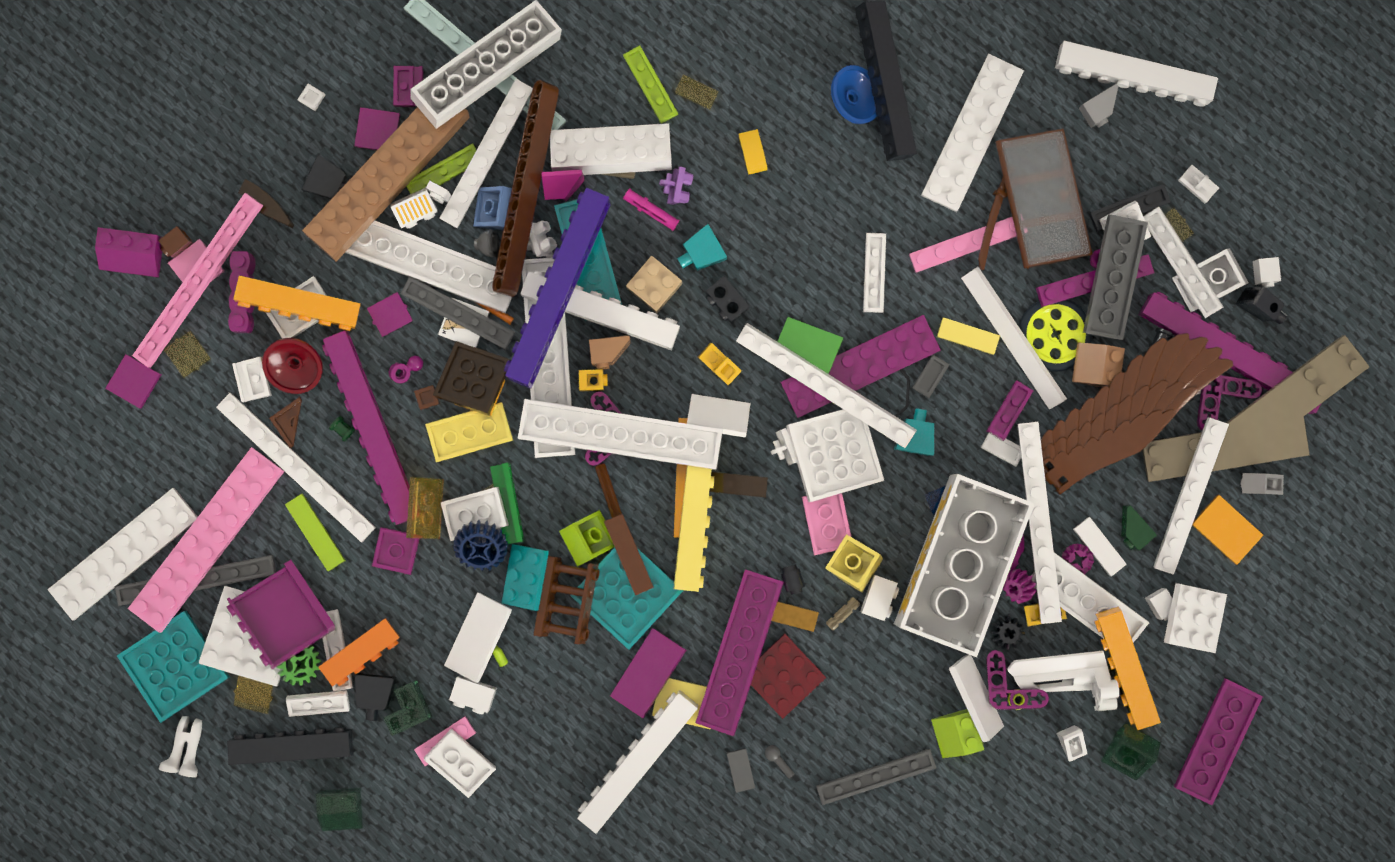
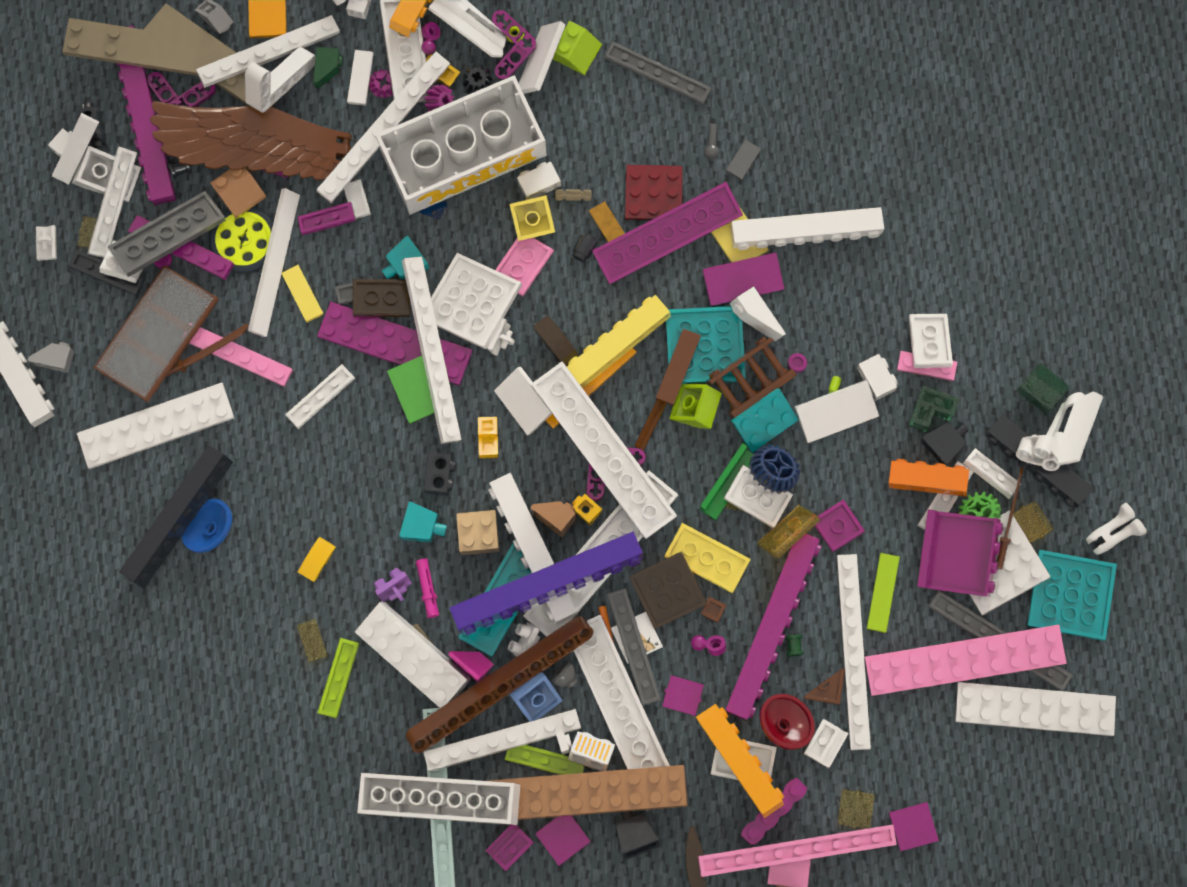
camera: 125 degrees left, 10 degrees down
(255, 657) = (1004, 540): none -> reddish brown sword
(274, 775) = (1065, 447): none -> white panel
(545, 647) = (797, 362): none -> magenta tile
(615, 654) = (755, 312): none -> white slope
(905, 388) = (380, 298): none -> dark brown tile
(1072, 622) = (430, 33): none -> magenta plate
(1158, 456) = (265, 88): none -> white beam
(1253, 272) = (75, 148): none -> white tile

